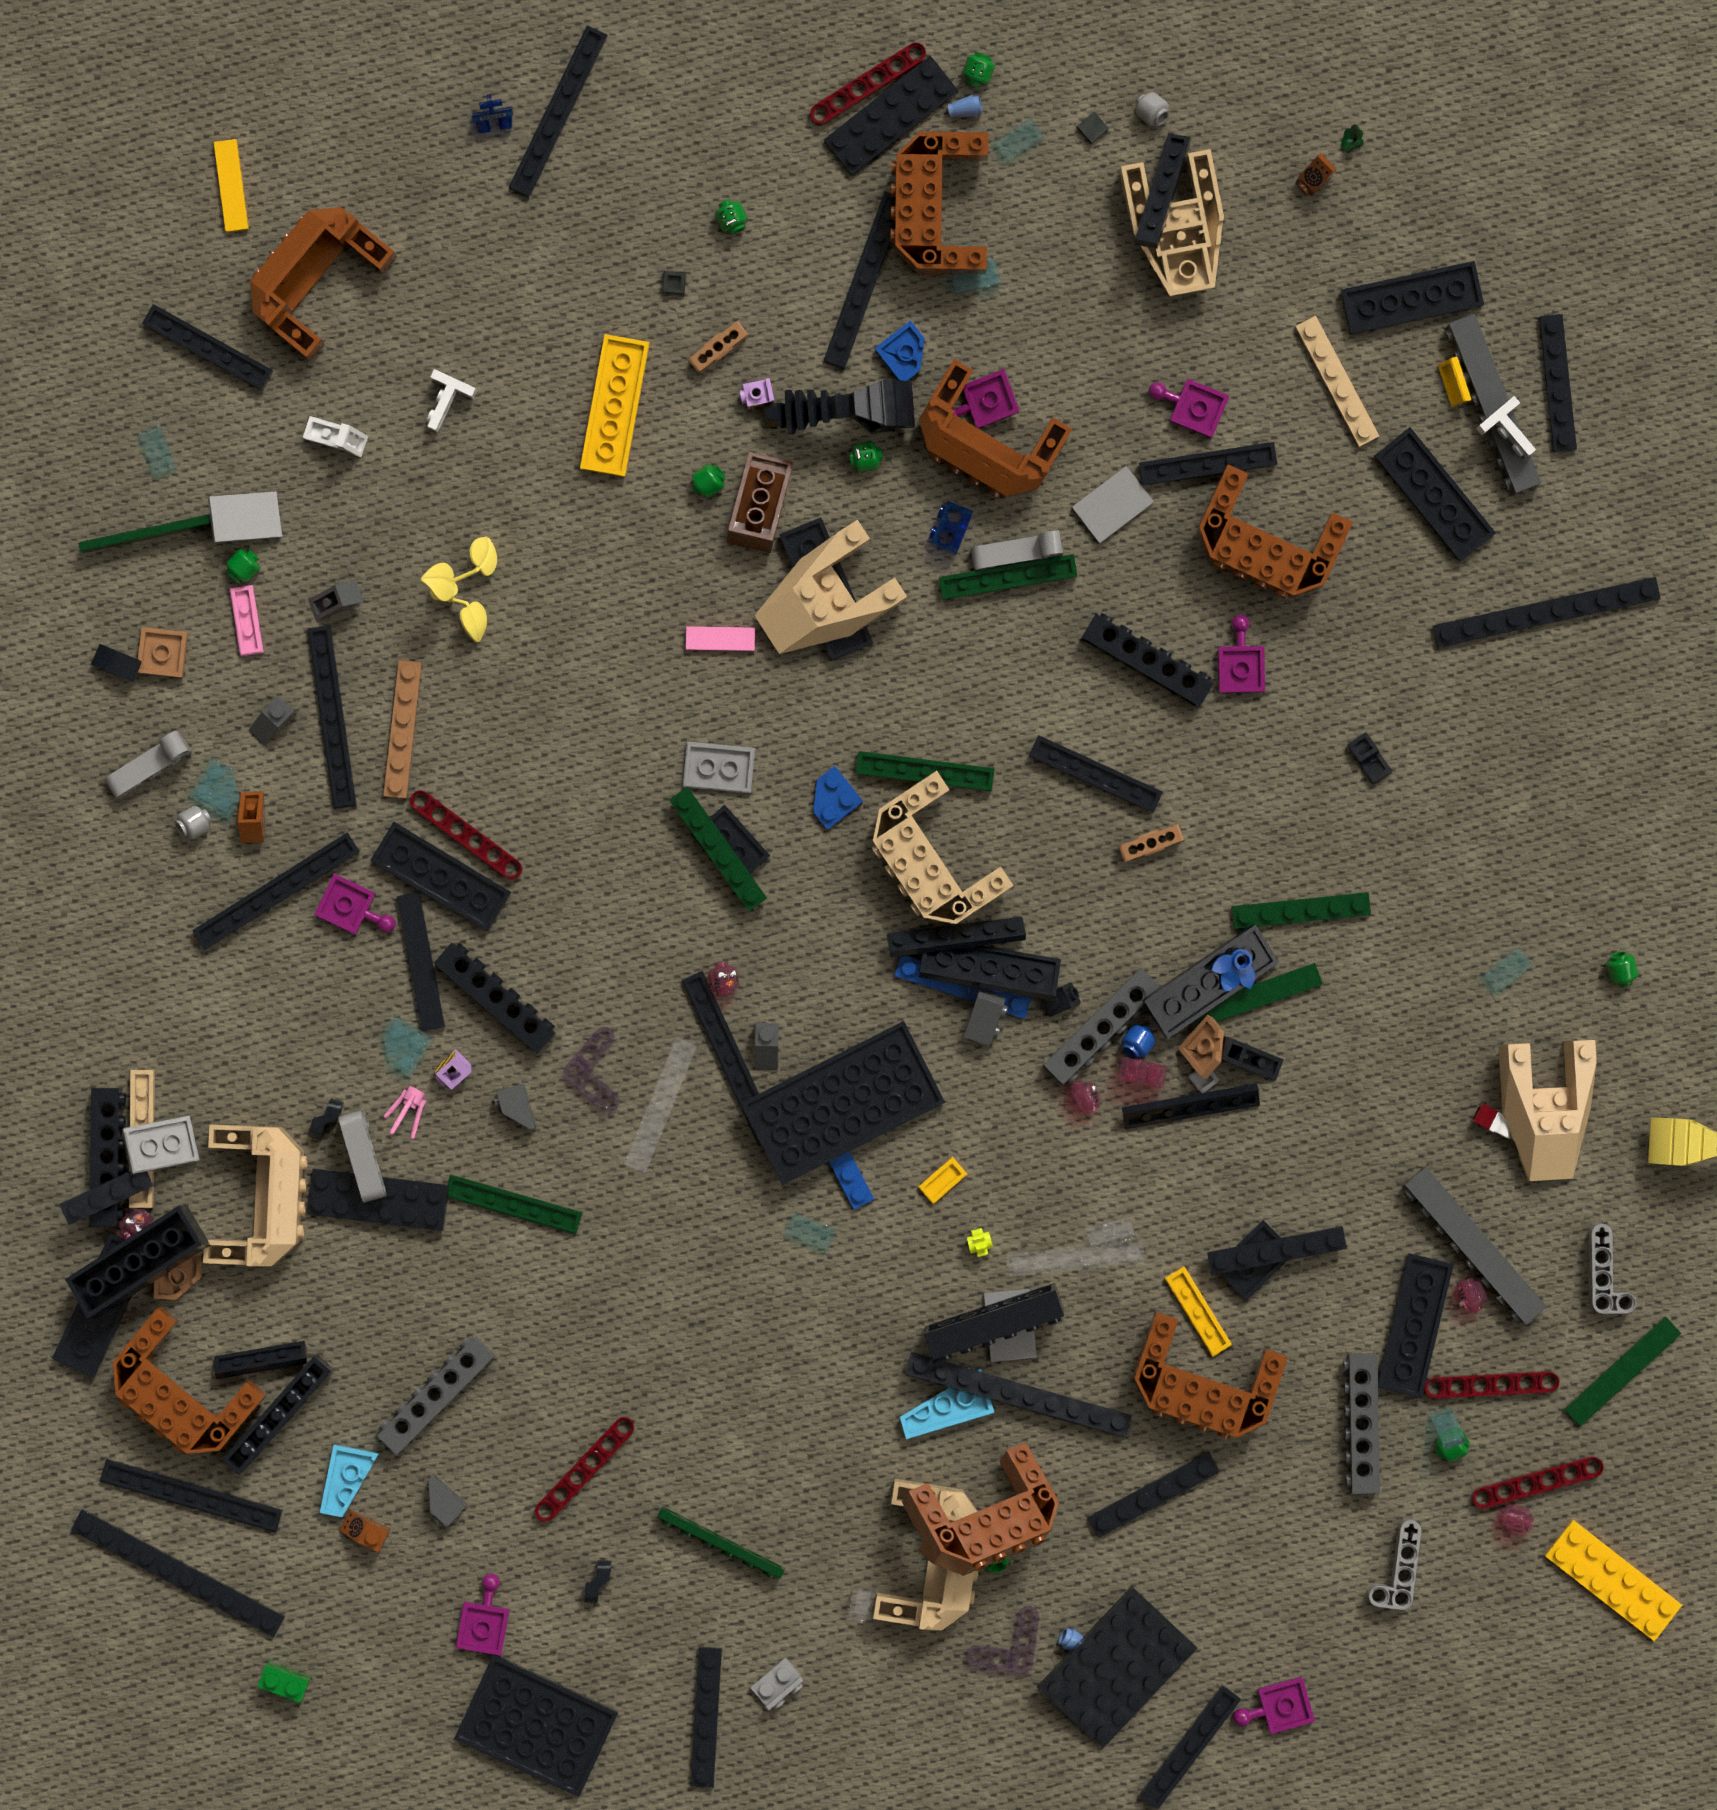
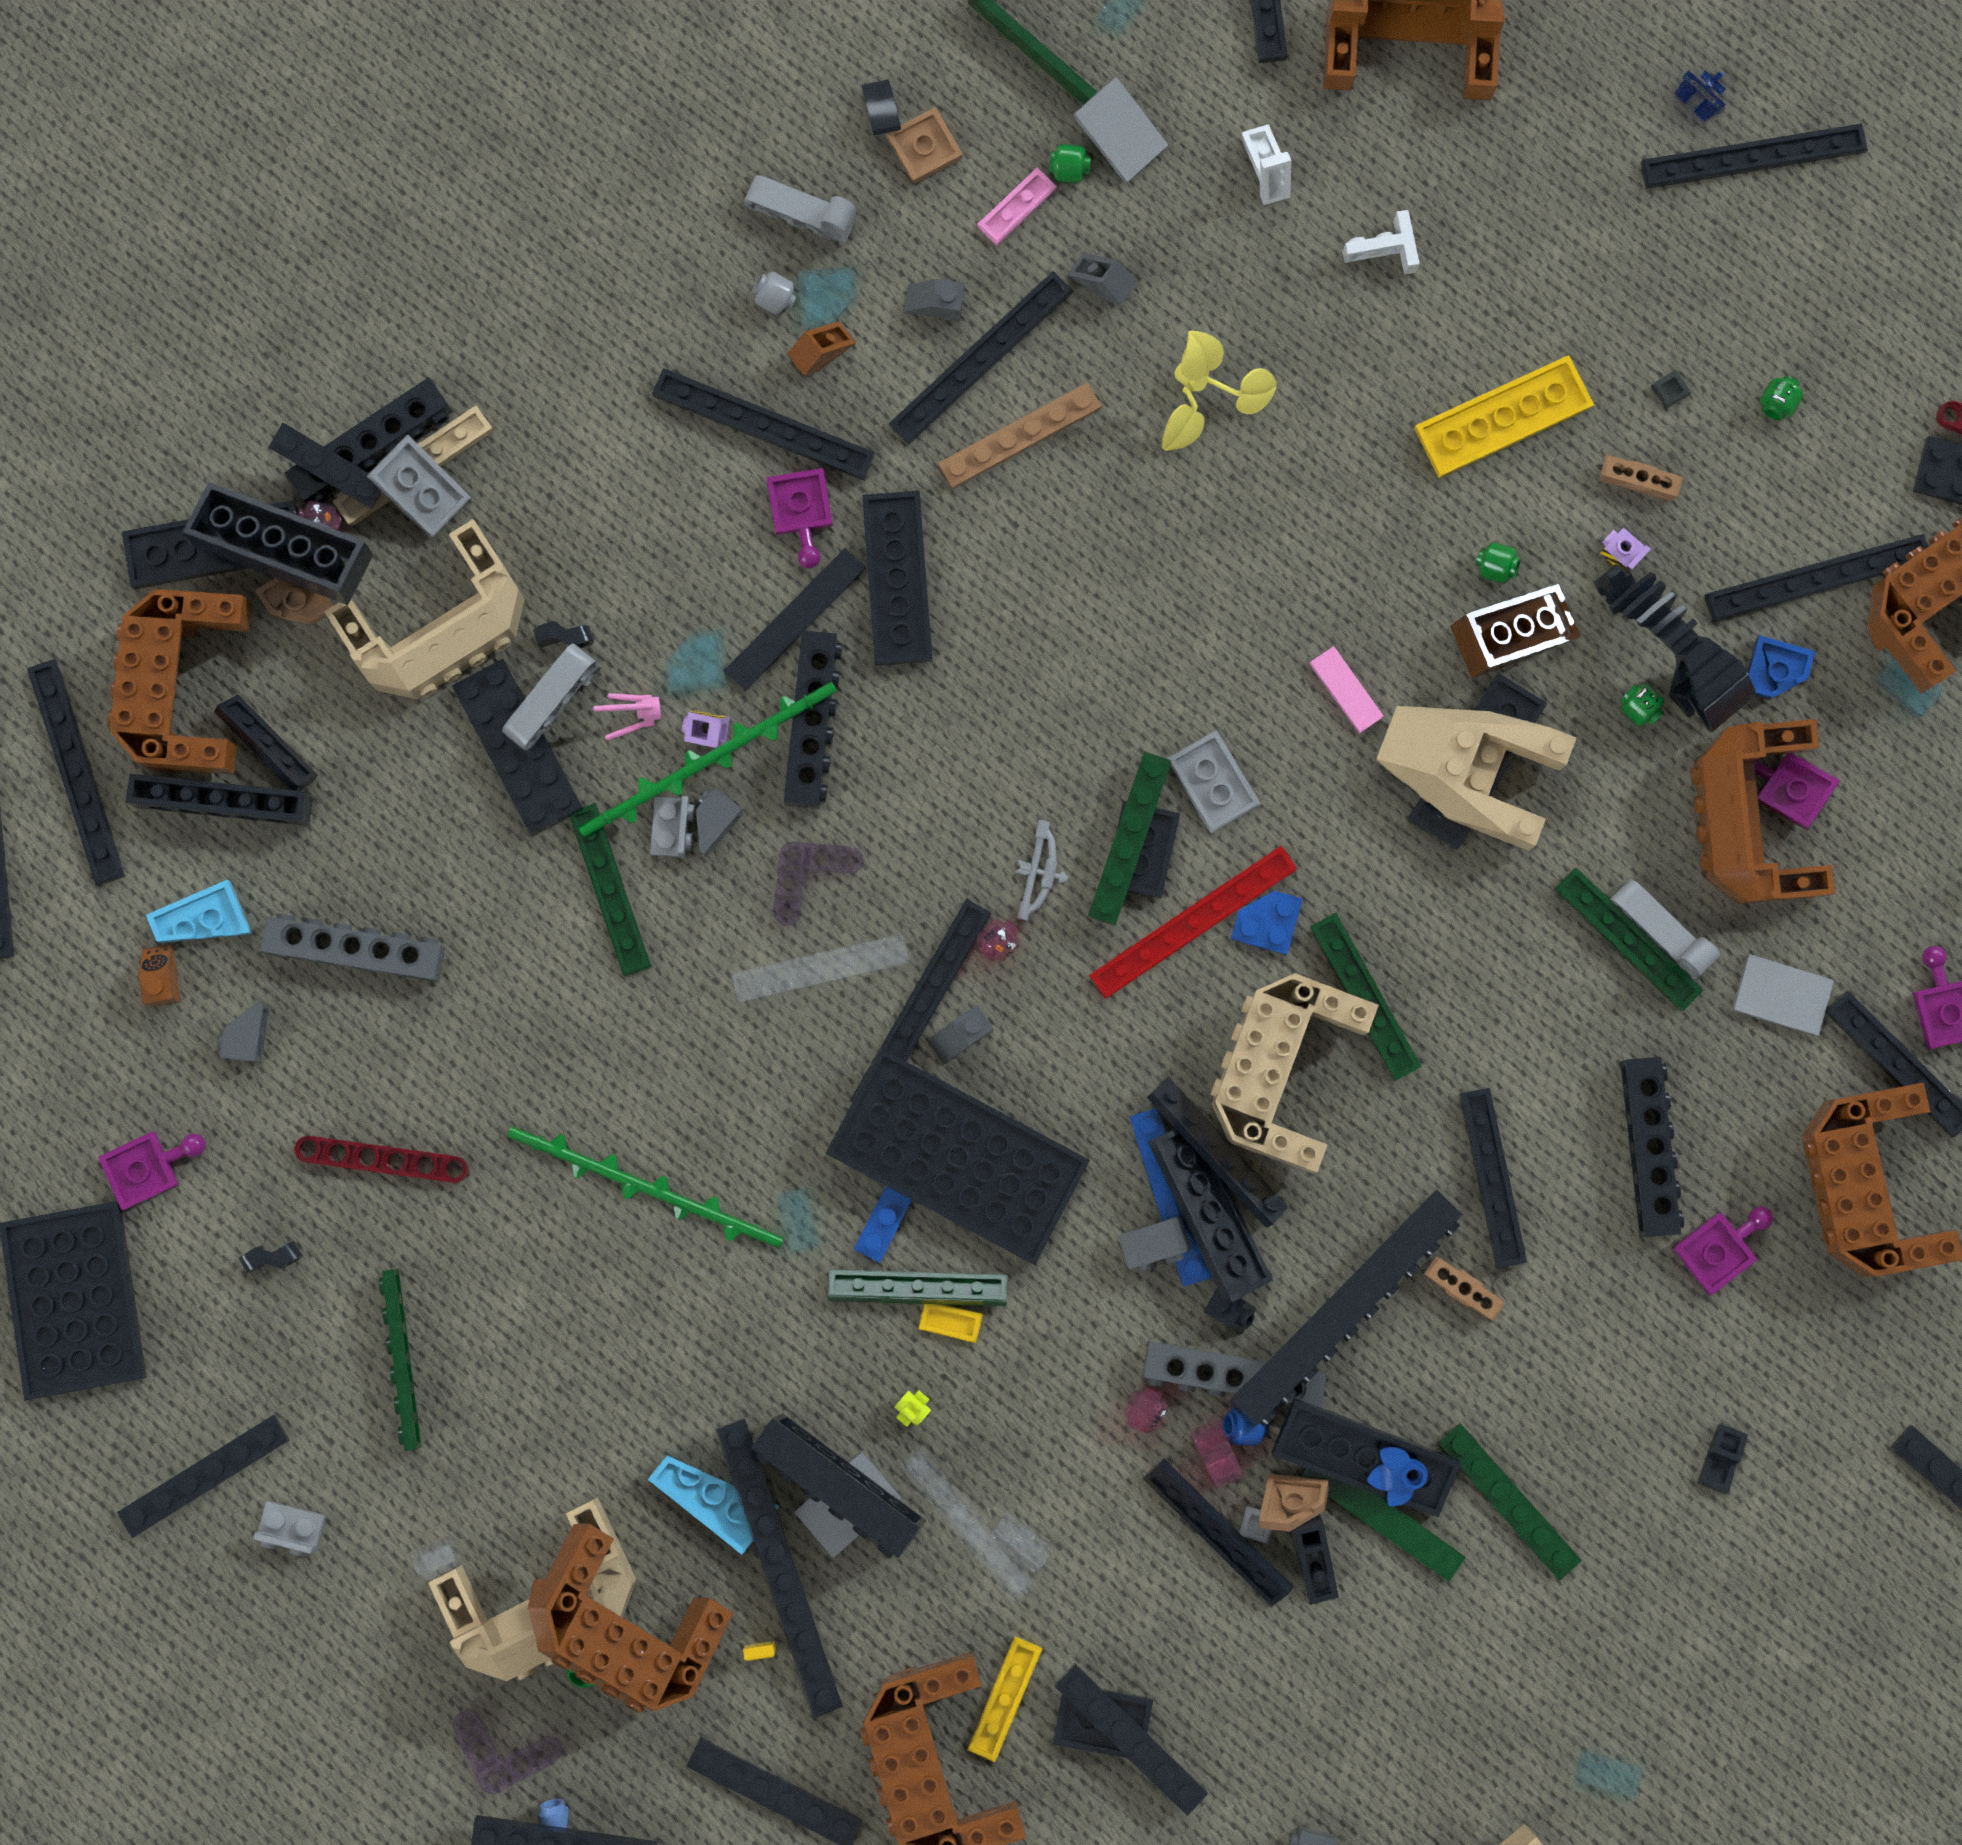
camera: 55 degrees right, 5 degrees down
(468, 832) = (955, 574): dark red beam -> none
(472, 1092) = (695, 763): none -> green plant
(500, 1136) = (670, 827): none -> light grey bracket
(703, 916) = (1048, 873): none -> light grey piece
(714, 1320) = (657, 1189): none -> green plant
(800, 845) = (1193, 922): none -> red tile
(906, 1186) = (917, 1288): none -> tile
(956, 530) = (1637, 849): clear blue brick -> none
(1061, 1442) = (759, 1651): none -> yellow tile
(1110, 927) = (1345, 1309): none -> black brick

